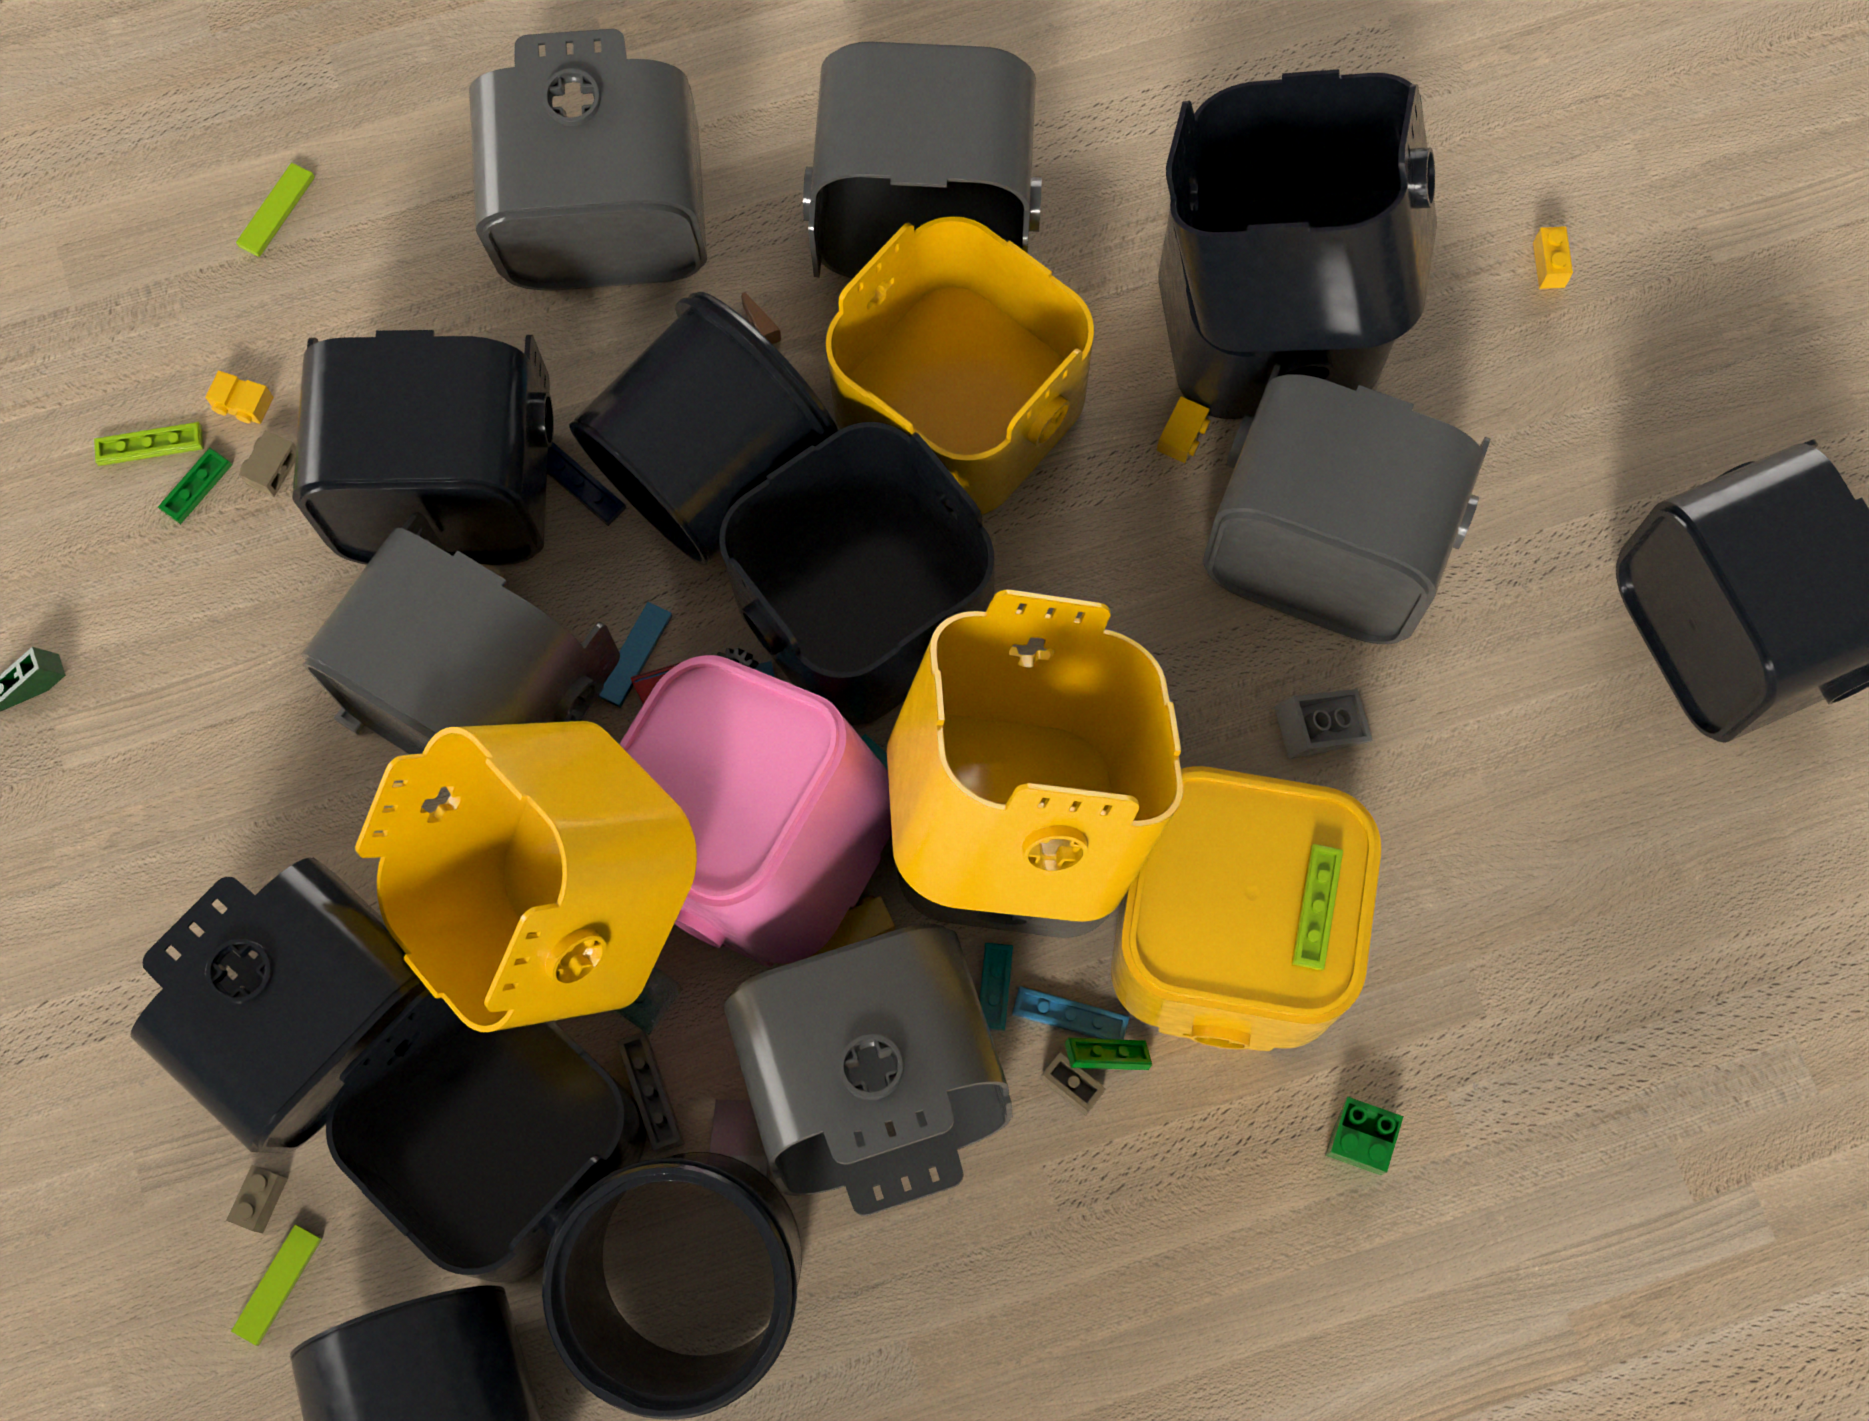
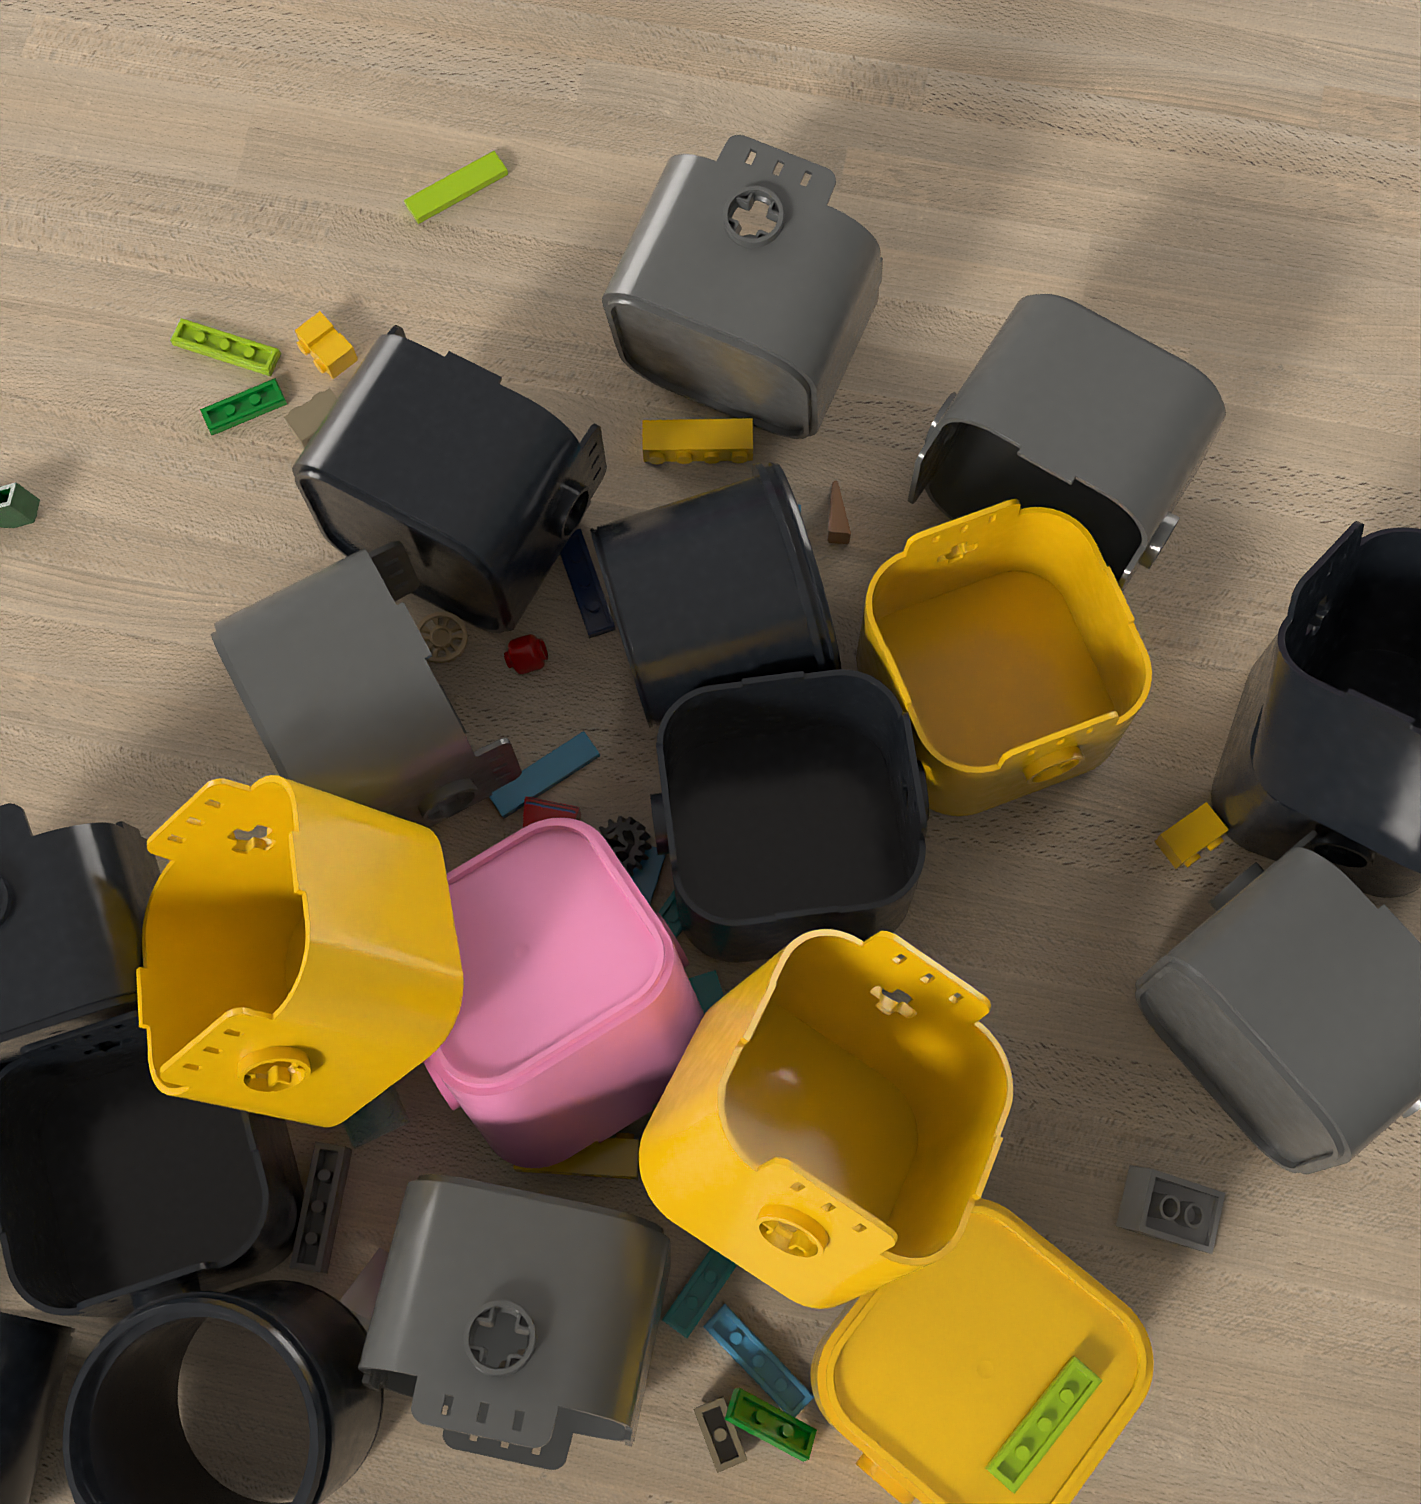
camera: 30 degrees right, 0 degrees up
(563, 564) = (526, 654): none -> red head
(608, 318) = (697, 440): none -> yellow brick

